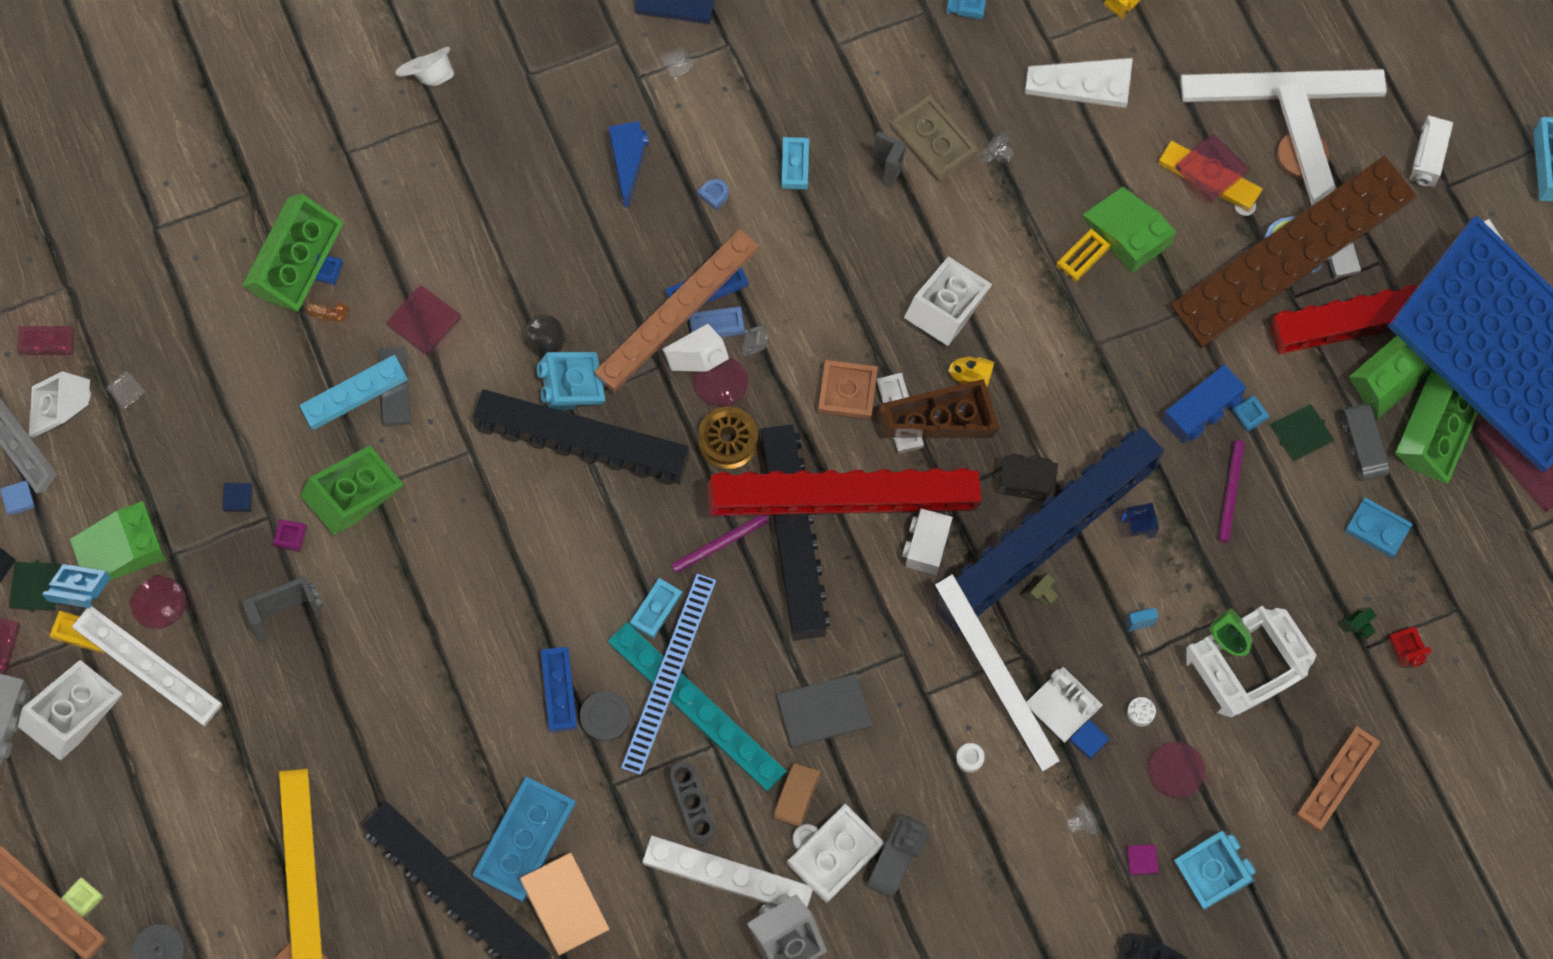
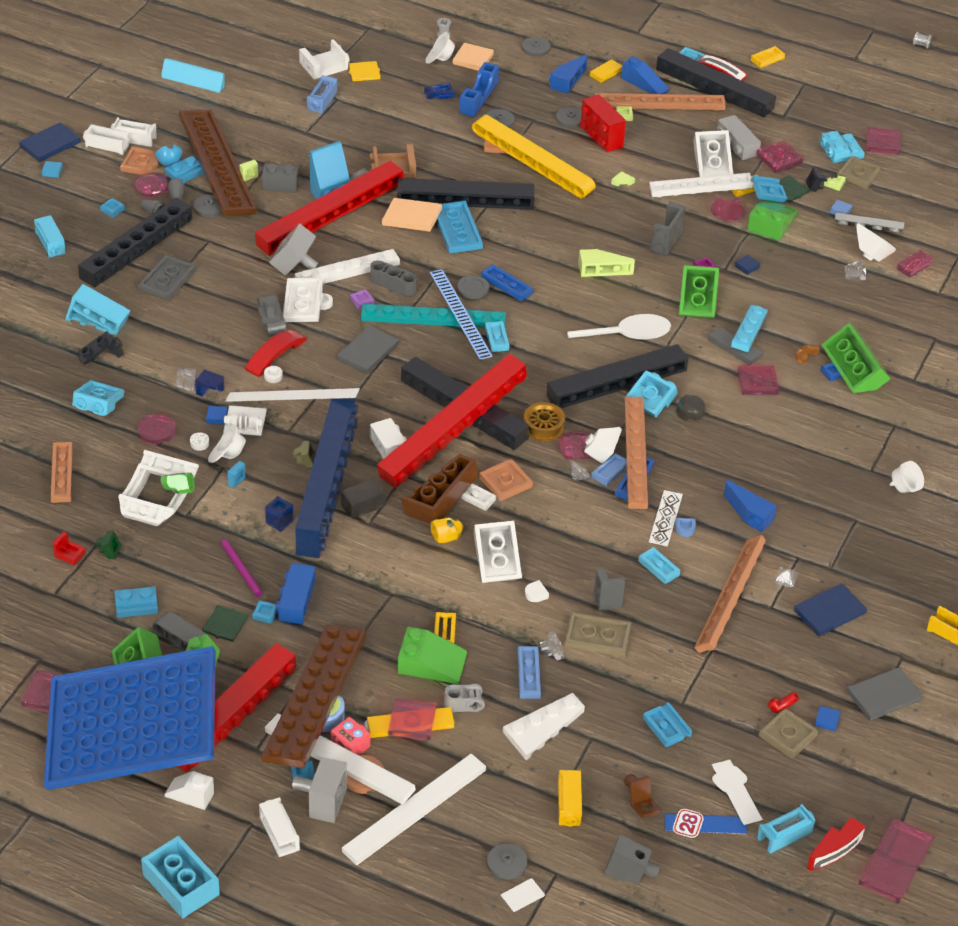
camera: 140 degrees right, 25 degrees down
(152, 874) = (603, 123): none -> red brick
(224, 766) = (623, 178): none -> yellowish green tile
(421, 635) = (603, 263): none -> yellowish green slope
(475, 504) = (636, 327): none -> white piece
(720, 223) = (665, 518): none -> white sticker
(756, 805) = (361, 297): none -> medium lavender tile
(758, 77) = (730, 593): none -> nougat plate
(797, 794) = (346, 308): medium nougat slope -> none
(936, 791) = (273, 349): none -> red slope
(949, 230) = (536, 592): none -> white tile
(1043, 147) = (529, 672): none -> medium blue tile
(1066, 787) = (209, 380): none -> clear blue panel
(1124, 669) = (229, 445): none -> white piece
(1136, 156) = (462, 698): none -> light grey piece
(1142, 860) = (141, 385): magenta tile -> none
(1287, 194) = (351, 736): none -> coral head
(1363, 143) = (325, 789): none -> light grey brick

